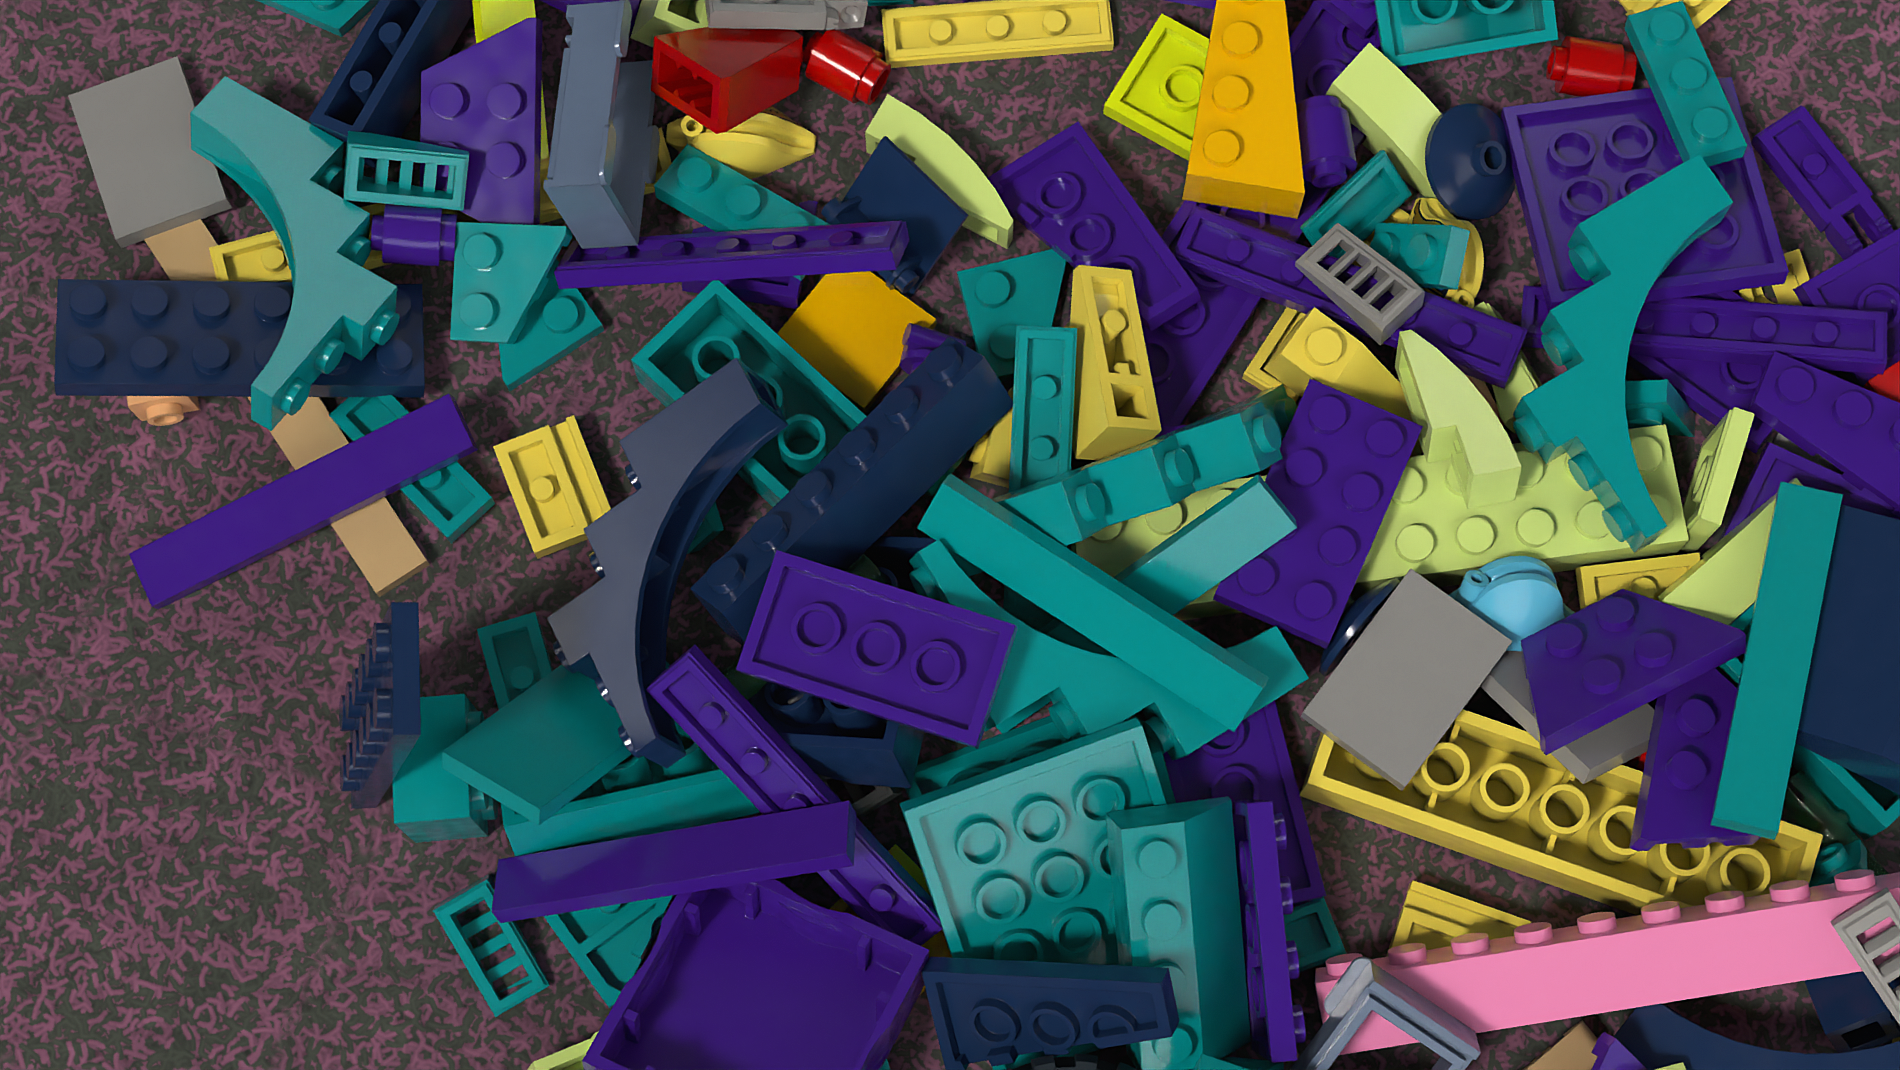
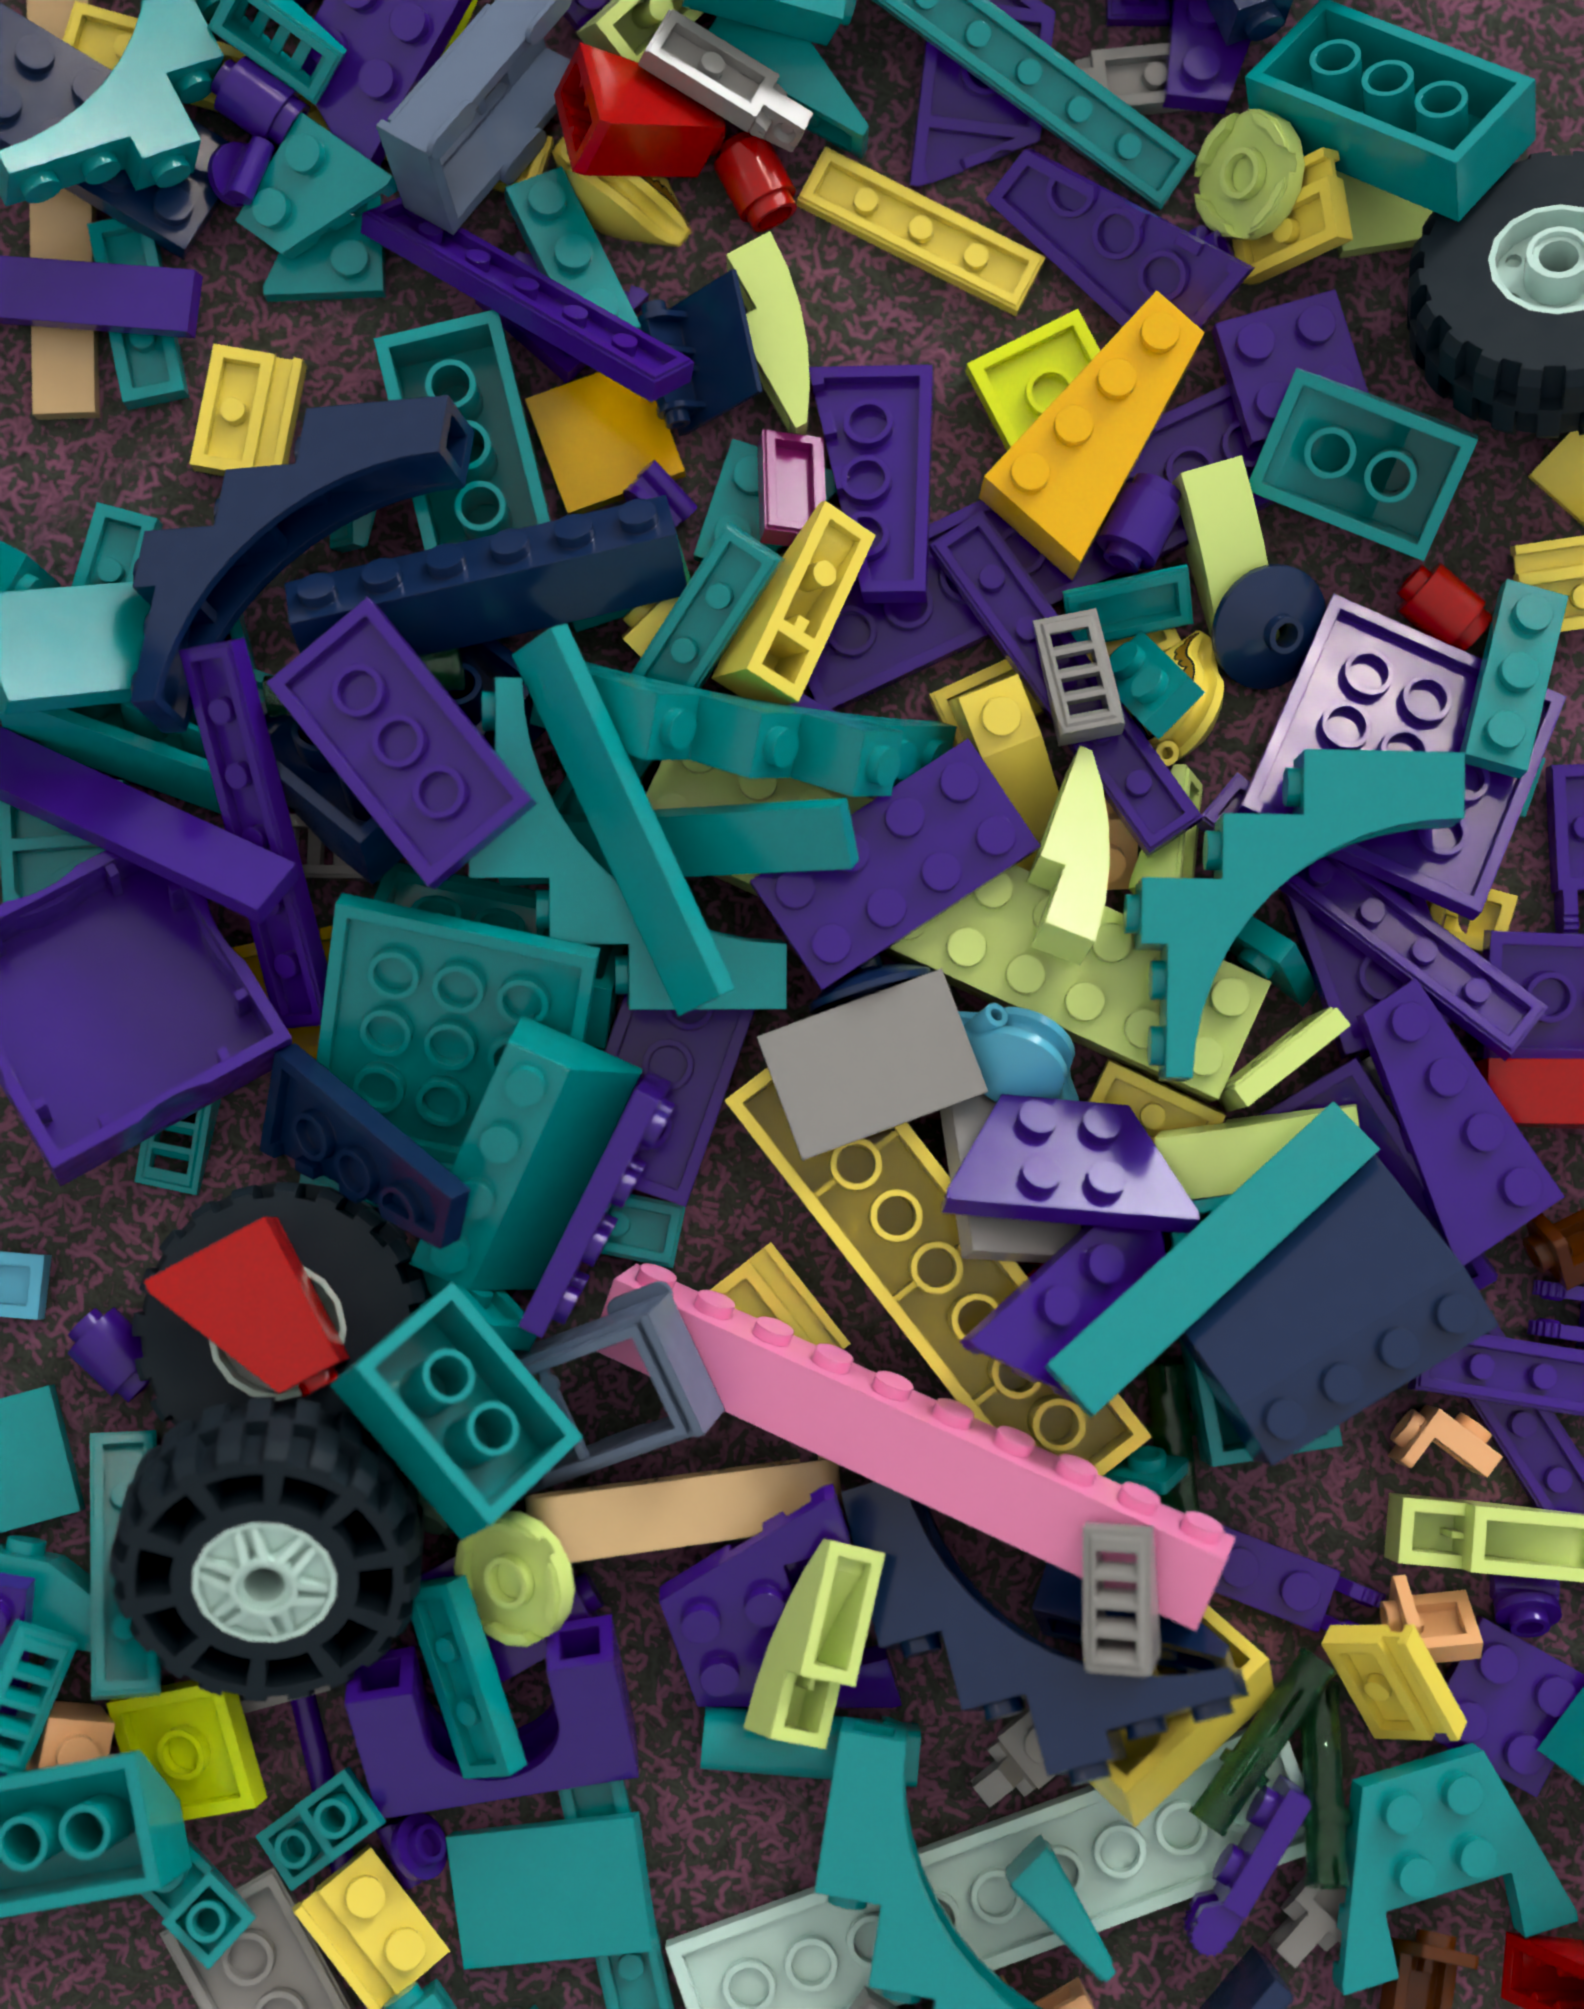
camera: 30 degrees right, 10 degrees up
(432, 297) = (238, 169): none -> dark purple plate
(1031, 276) = (788, 483): none -> tile

